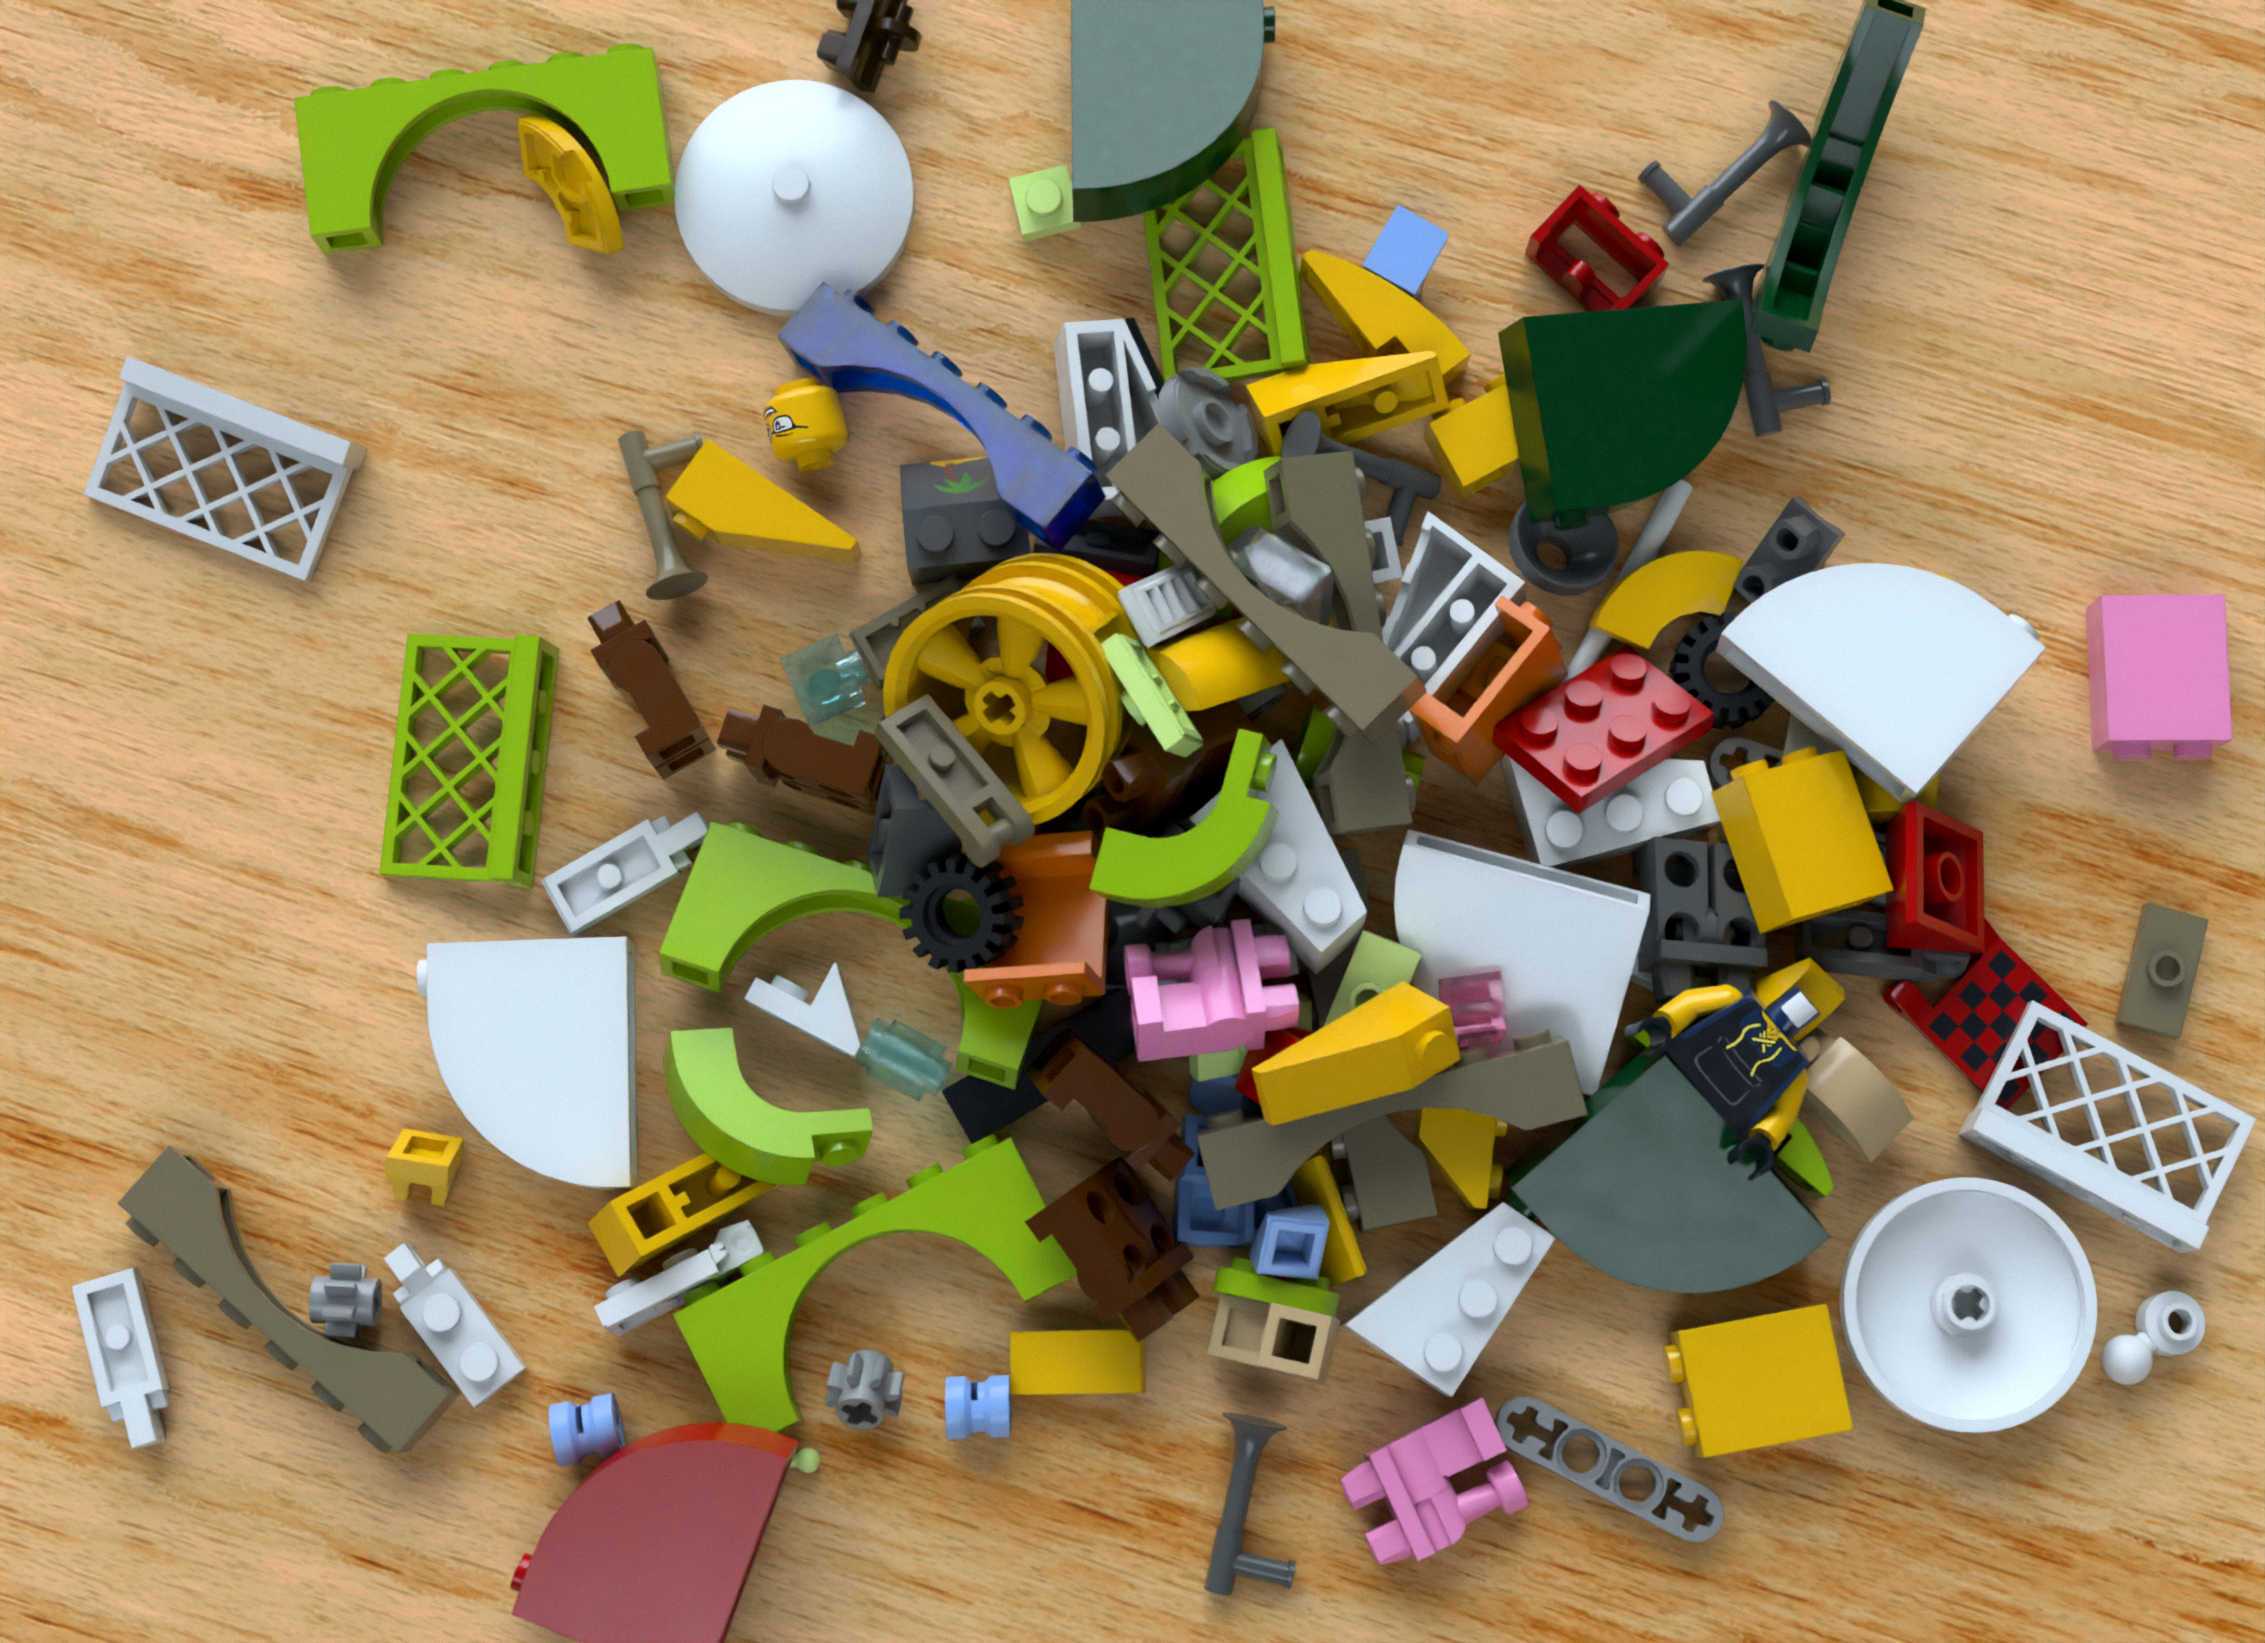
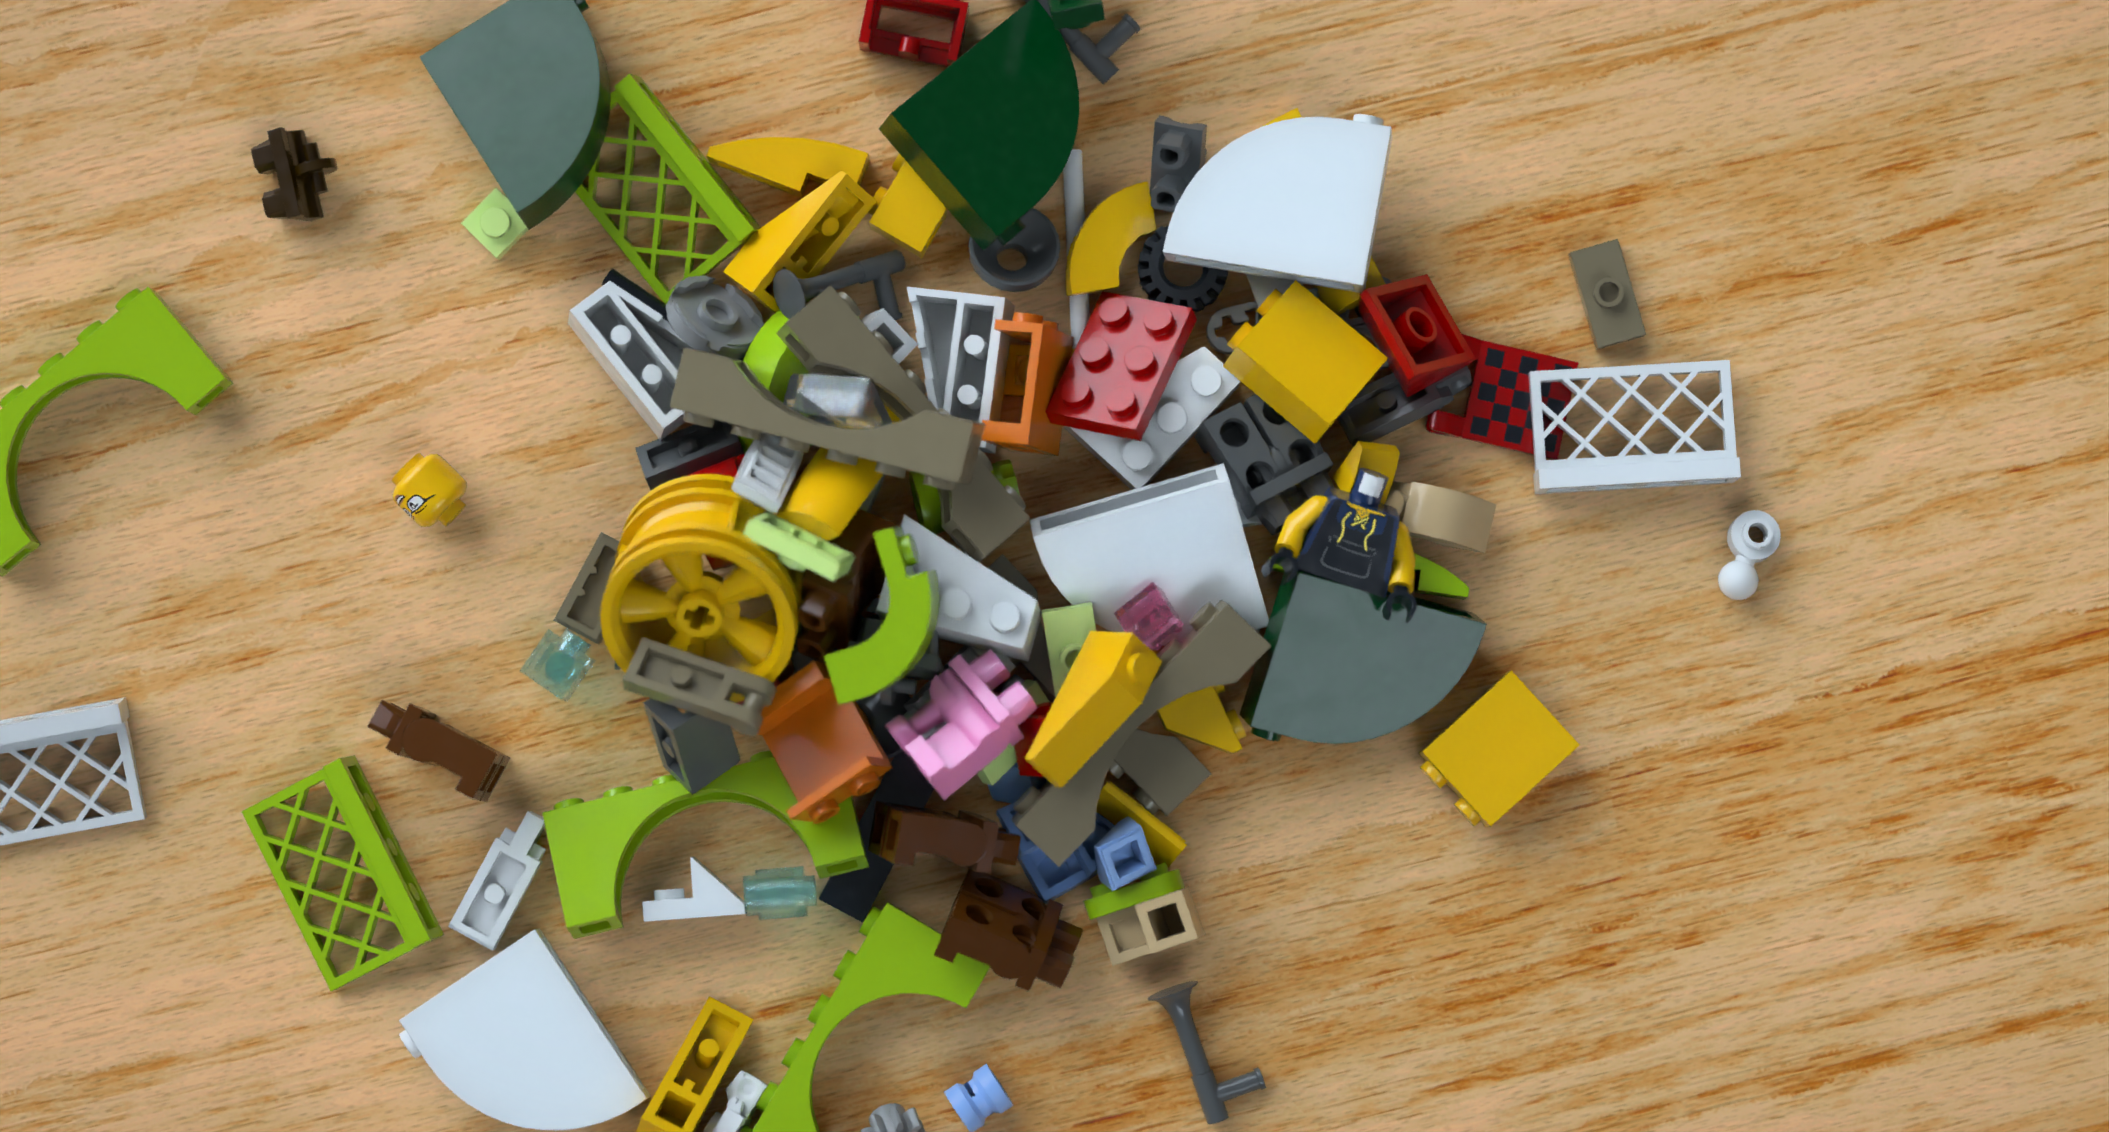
camera: 35 degrees left, 5 degrees up
(572, 182) = (151, 418): yellow tile -> none
(673, 574) = (330, 589): dark tan piece -> none
(743, 1128) = (694, 1010): lime arch -> none
(746, 510) = (422, 577): yellow slope -> none
(794, 194) = (316, 329): white dish -> none
(806, 761) = (580, 730): reddish brown hips -> none
(854, 352) = (431, 418): clear blue arch -> none
(930, 922) = (752, 797): black tyre -> none
(956, 520) = (582, 486): dark grey slope -> none
(1076, 1362) = (1027, 1026): yellow slope -> none
(1406, 251) = (777, 106): light blue panel -> none
(1417, 1488) = (1309, 966): bright pink hips -> none
(1455, 1299) = (1258, 823): white wedge -> none
(1610, 1463) = (1432, 876): light grey beam -> none
(1968, 1305) = (1608, 611): white dish -> none
(2159, 675) = (1483, 87): bright pink brick -> none

